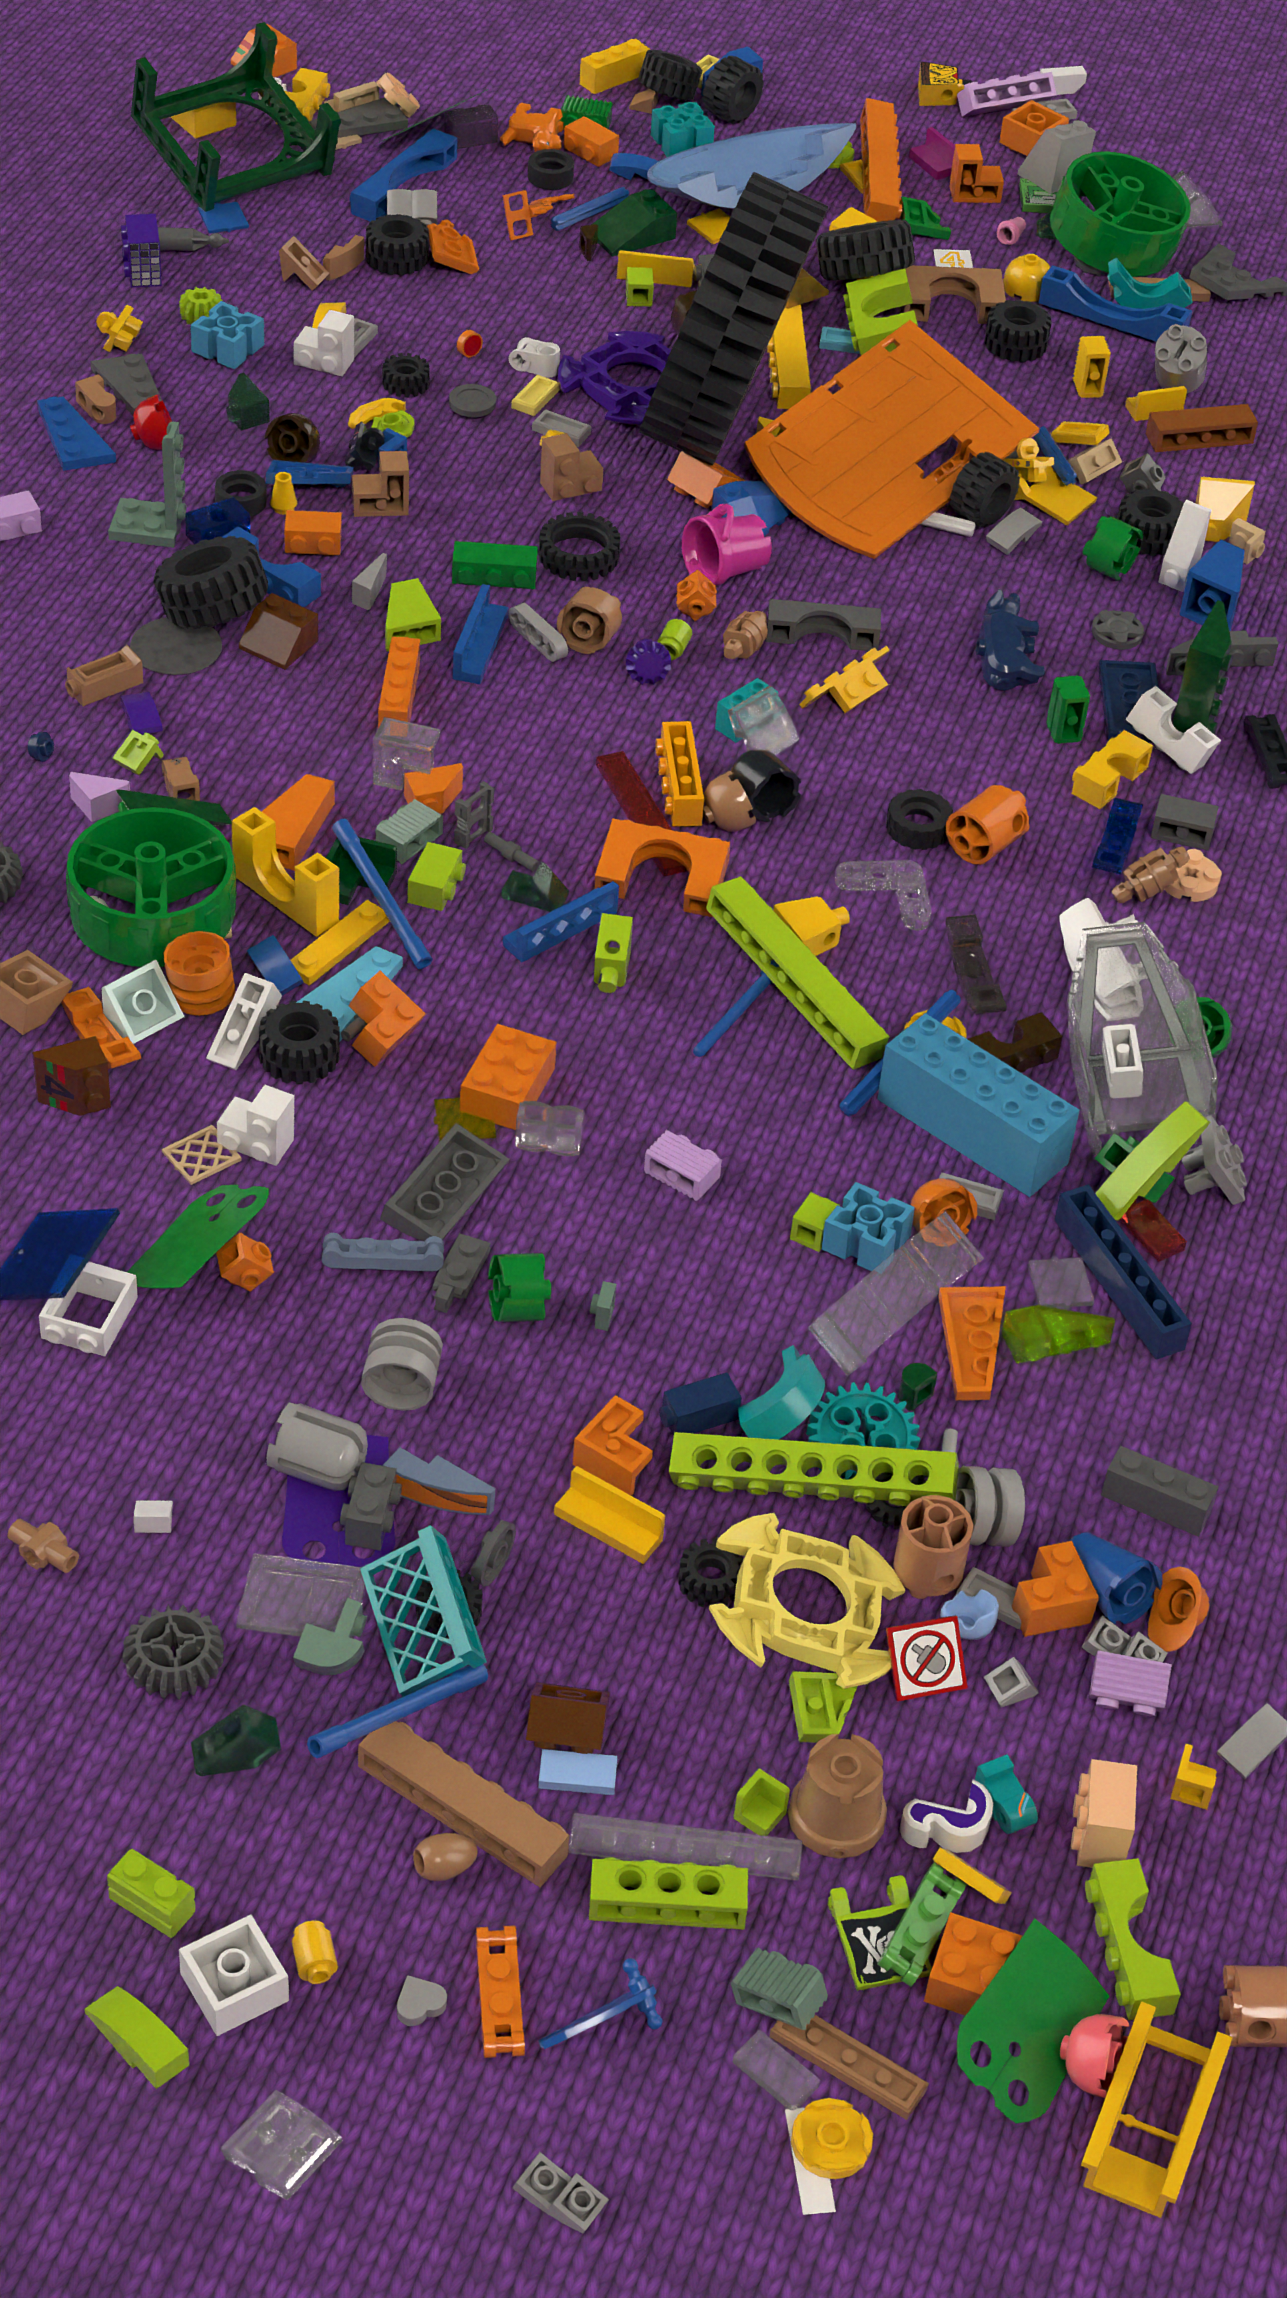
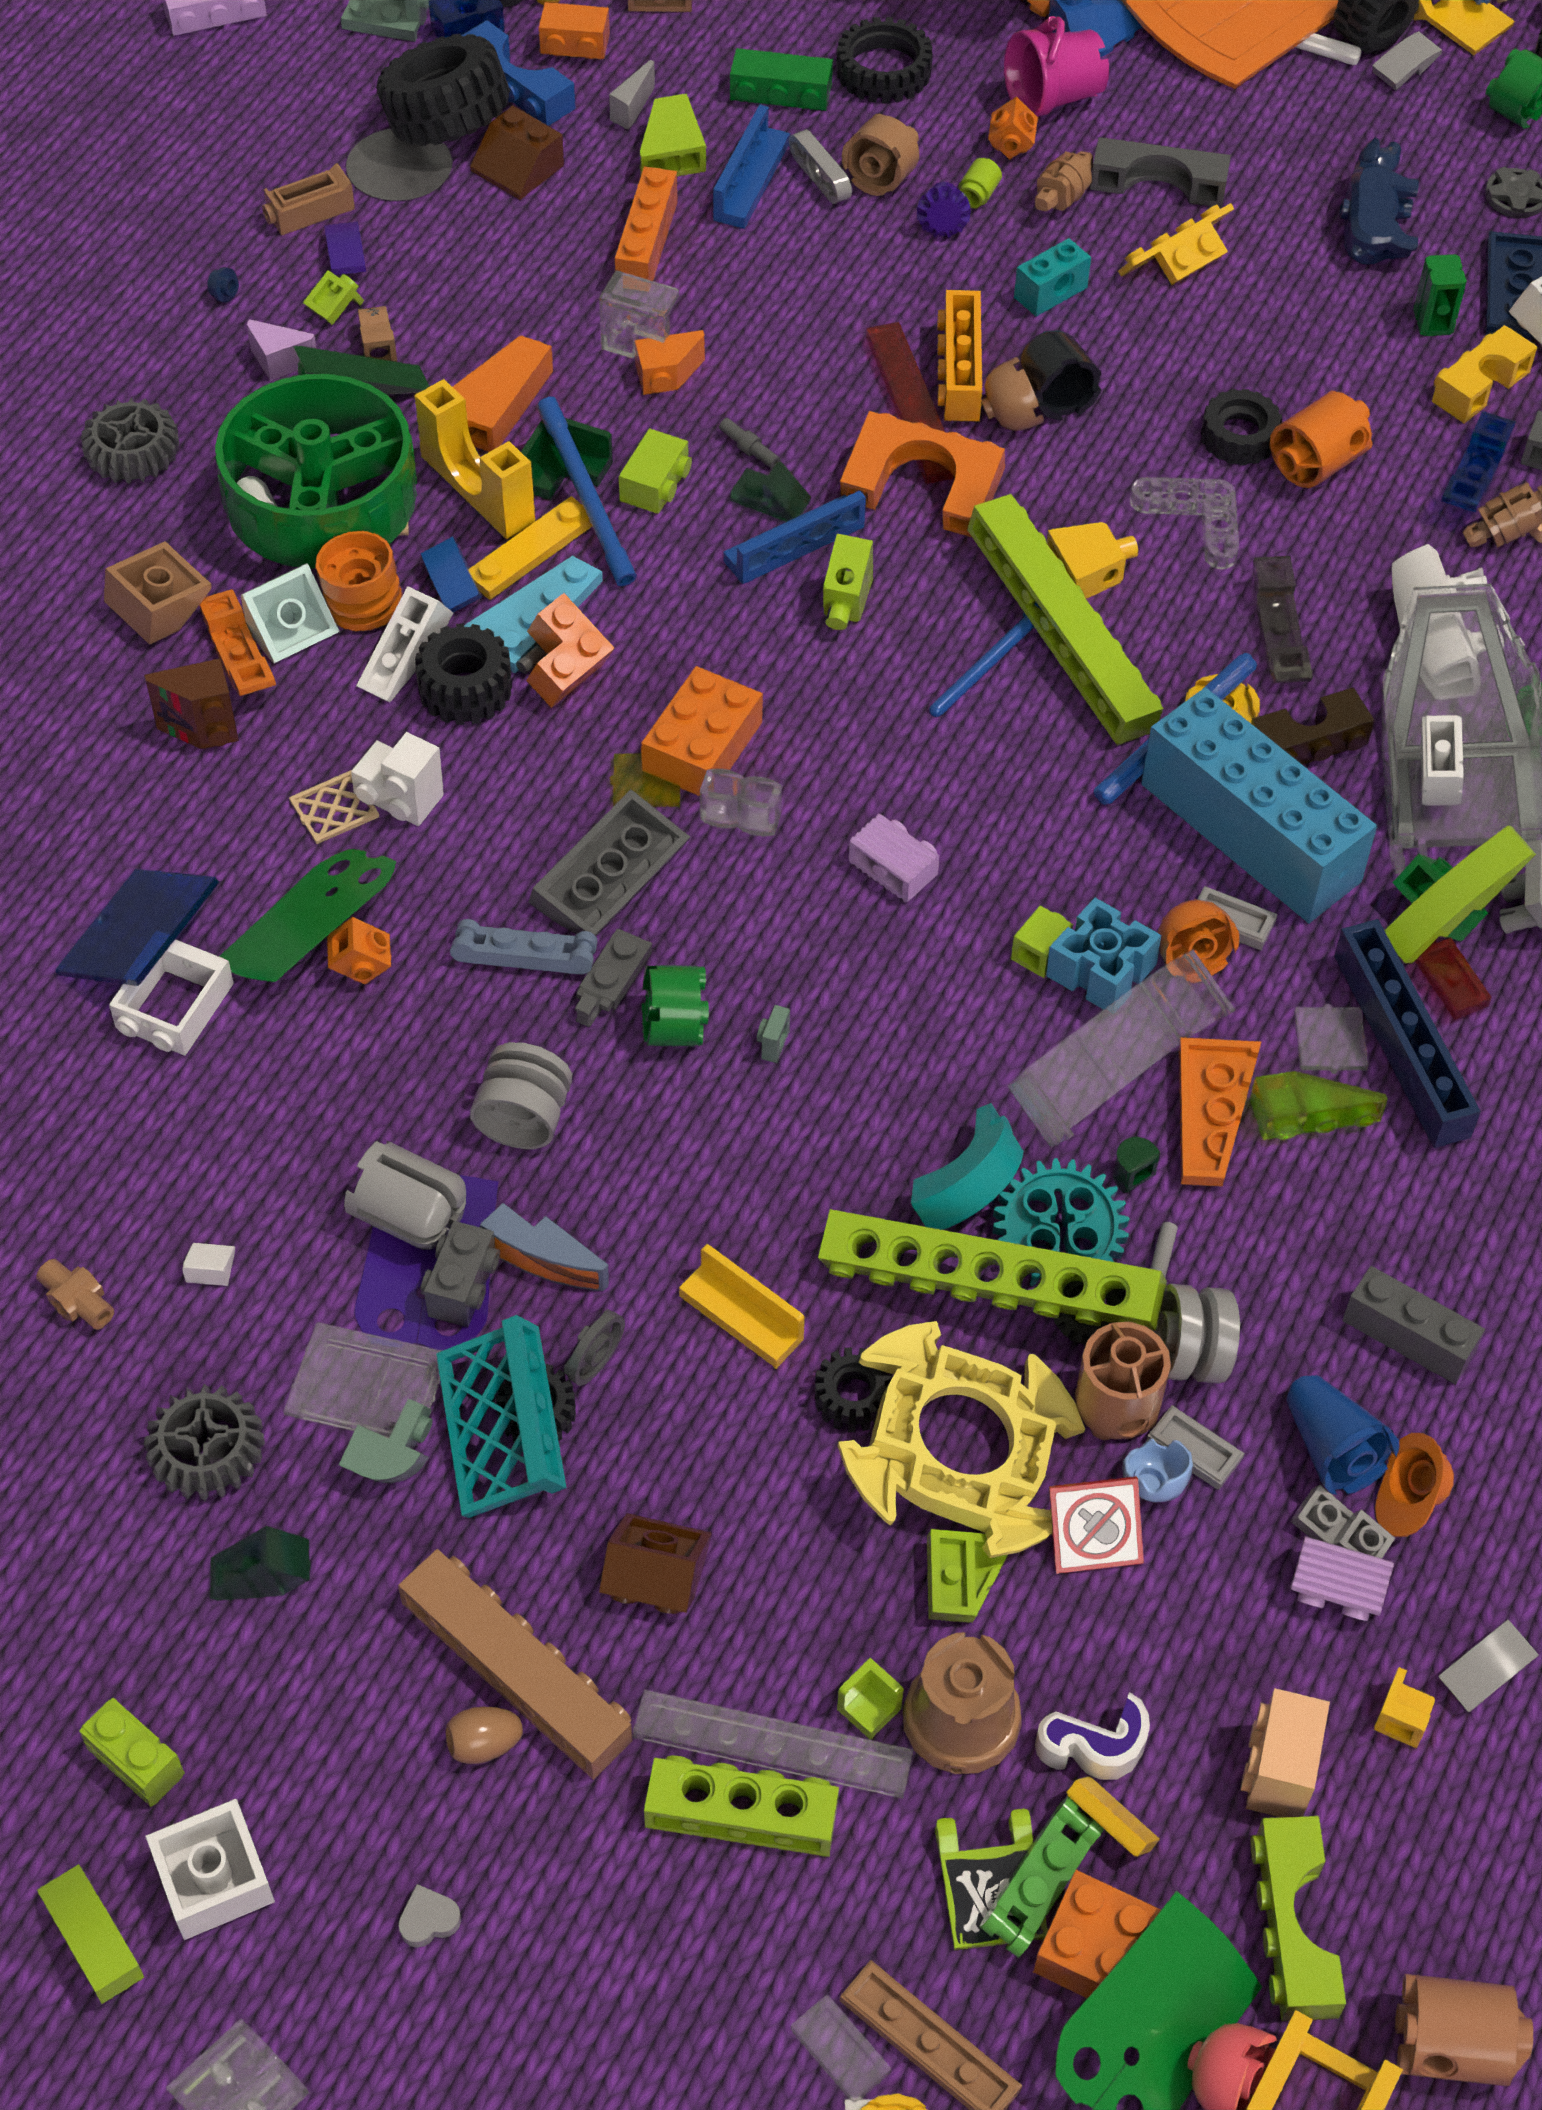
camera: 10 degrees right, 10 degrees up
(314, 1952) = (311, 1845): yellow brick -> none
(340, 1735) = (371, 1579): blue piece -> none
(410, 829) = (632, 410): sand green brick -> none
(467, 818) = (699, 403): dark grey piece -> none
(499, 1992) = (524, 1915): orange plate -> none
(577, 1772) = (658, 1635): light blue tile -> none
(608, 1450) = (748, 1219): orange panel -> none
(640, 1993) = (686, 1937): blue piece -> none
(701, 1405) = (869, 1172): dark blue brick -> none
(763, 722) = (1069, 295): clear slope -> none
(780, 1988) = (857, 1947): sand green brick -> none
(1010, 1683) = (1197, 1561): light grey slope -> none
(1011, 1804) = (1169, 1713): teal leg -> none
(1058, 1594) = (1272, 1454): orange brick -> none

